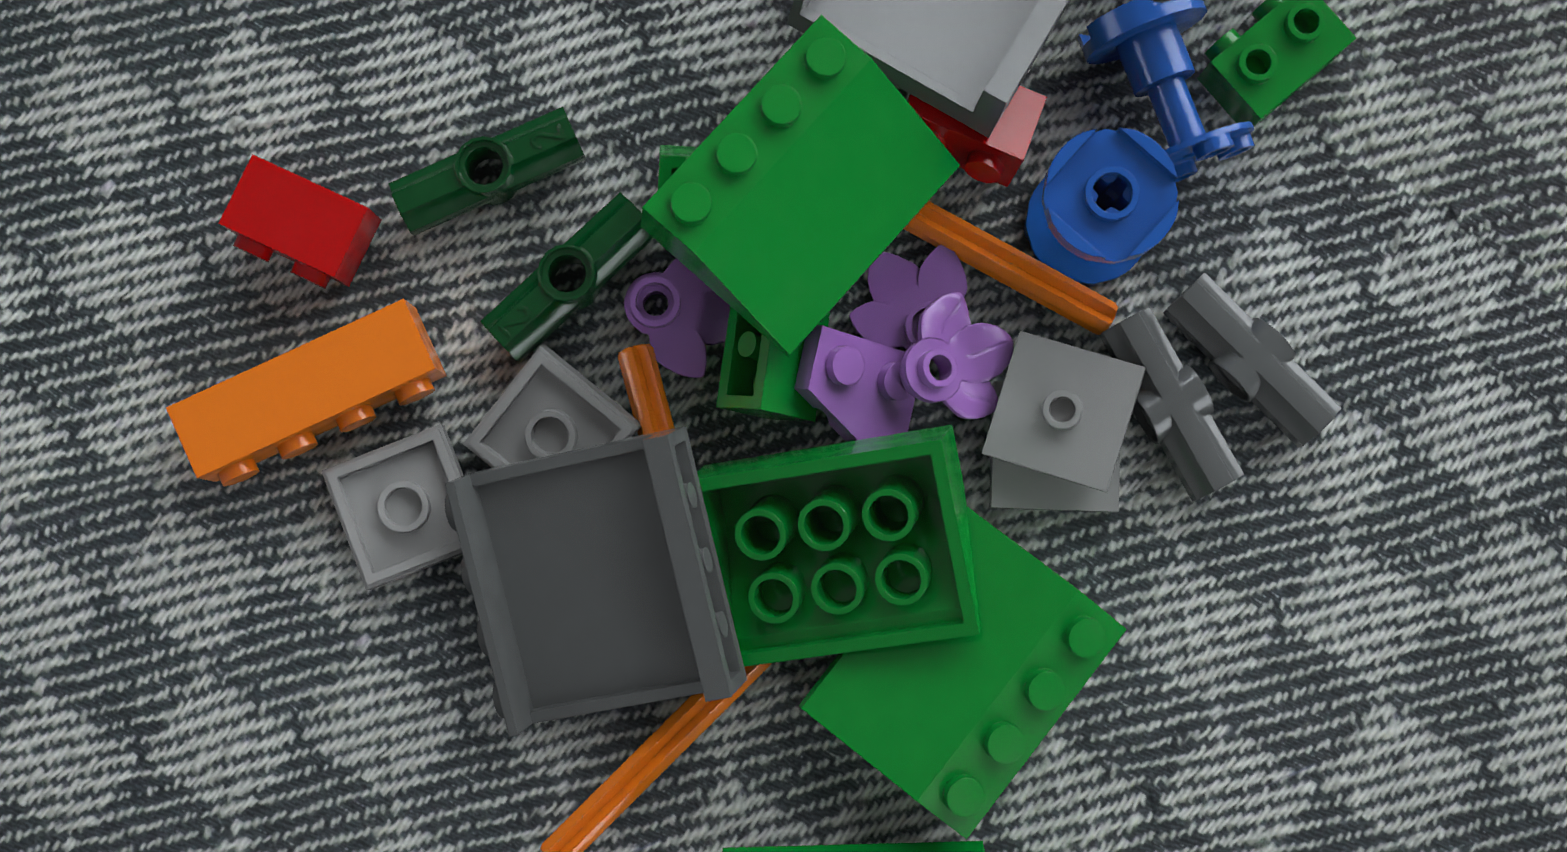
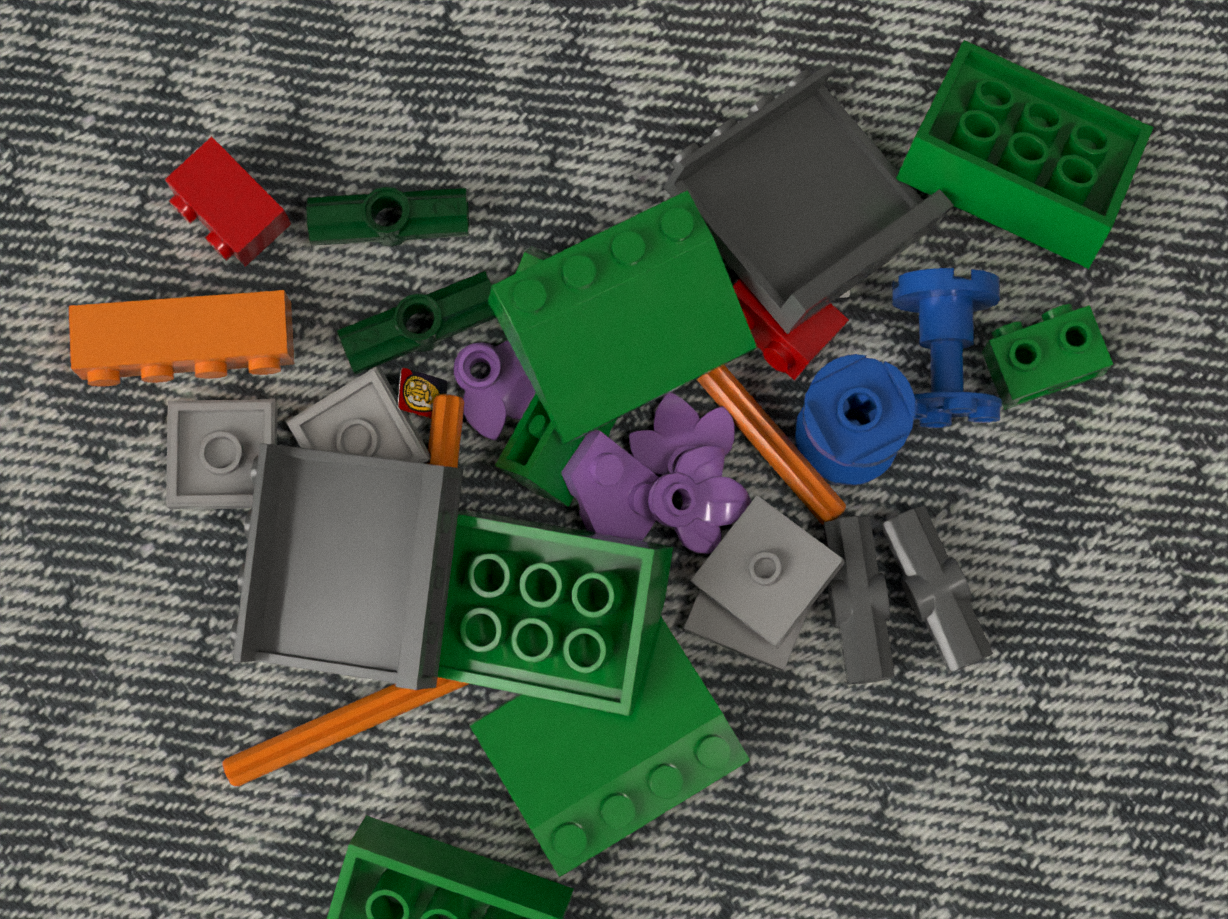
camera: 20 degrees right, 5 degrees down
(598, 355) = (418, 392): none -> sticker

